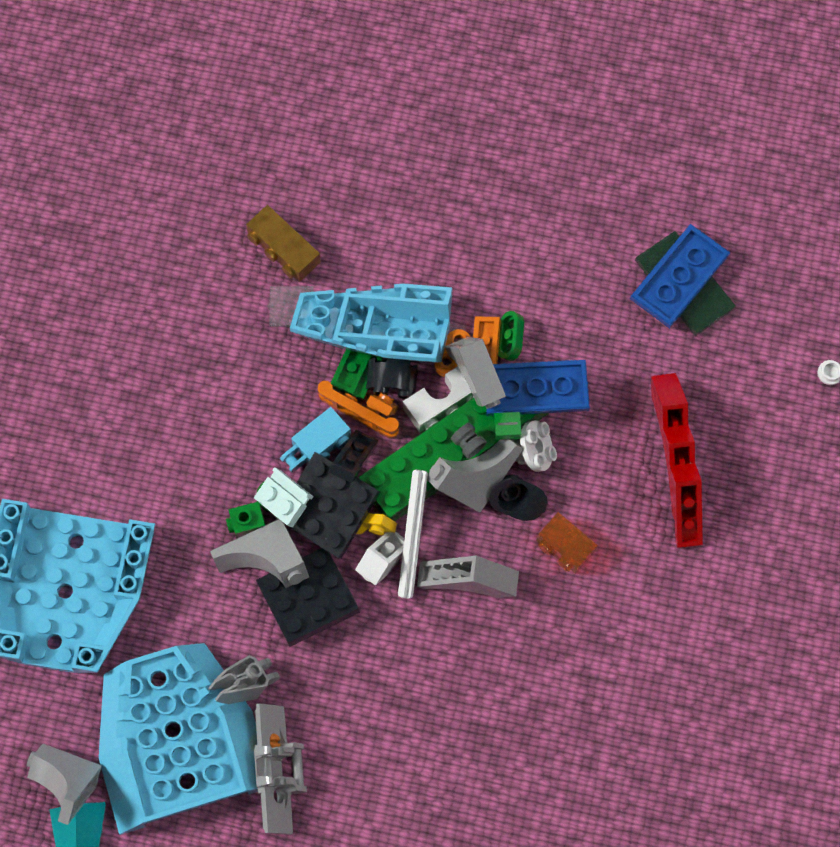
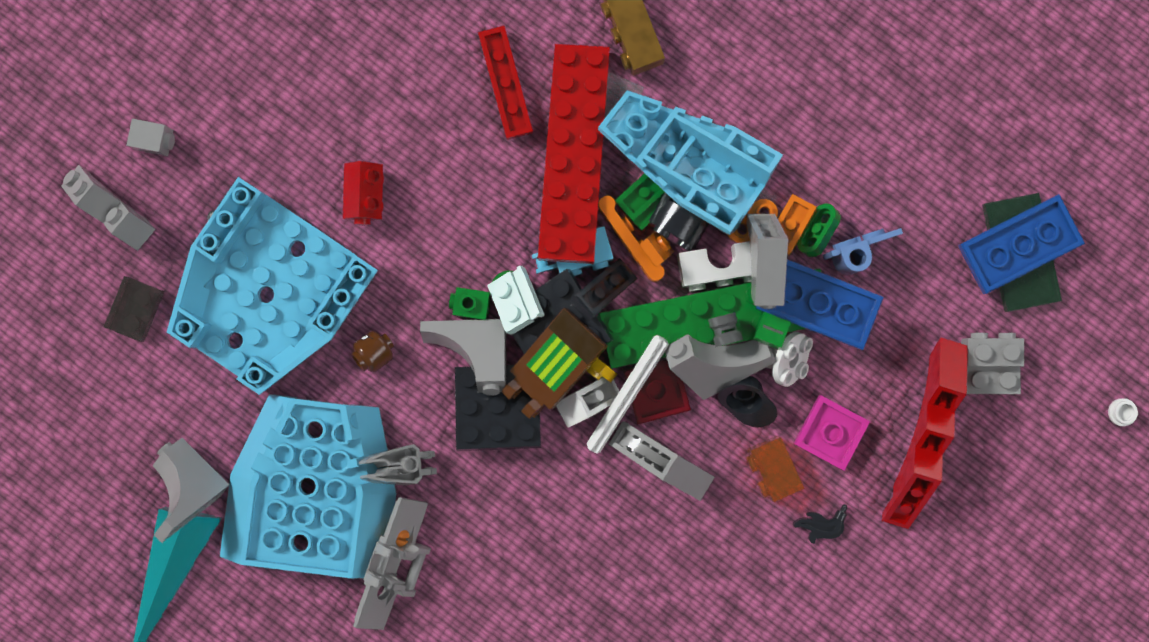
camera: 30 degrees right, 15 degrees up
(113, 468) = (363, 192): none -> red brick
(179, 597) = (372, 351): none -> reddish brown head
(196, 330) = (505, 82): none -> red plate
(279, 362) = (573, 154): none -> red plate
(339, 531) = (554, 363): none -> tile
(441, 525) = (660, 395): none -> dark red tile
(547, 339) = (859, 249): none -> medium blue piece
(599, 493) = (831, 432): none -> dark pink plate
(630, 575) = (822, 527): none -> black piece
(705, 380) = (994, 363): none -> light grey plate

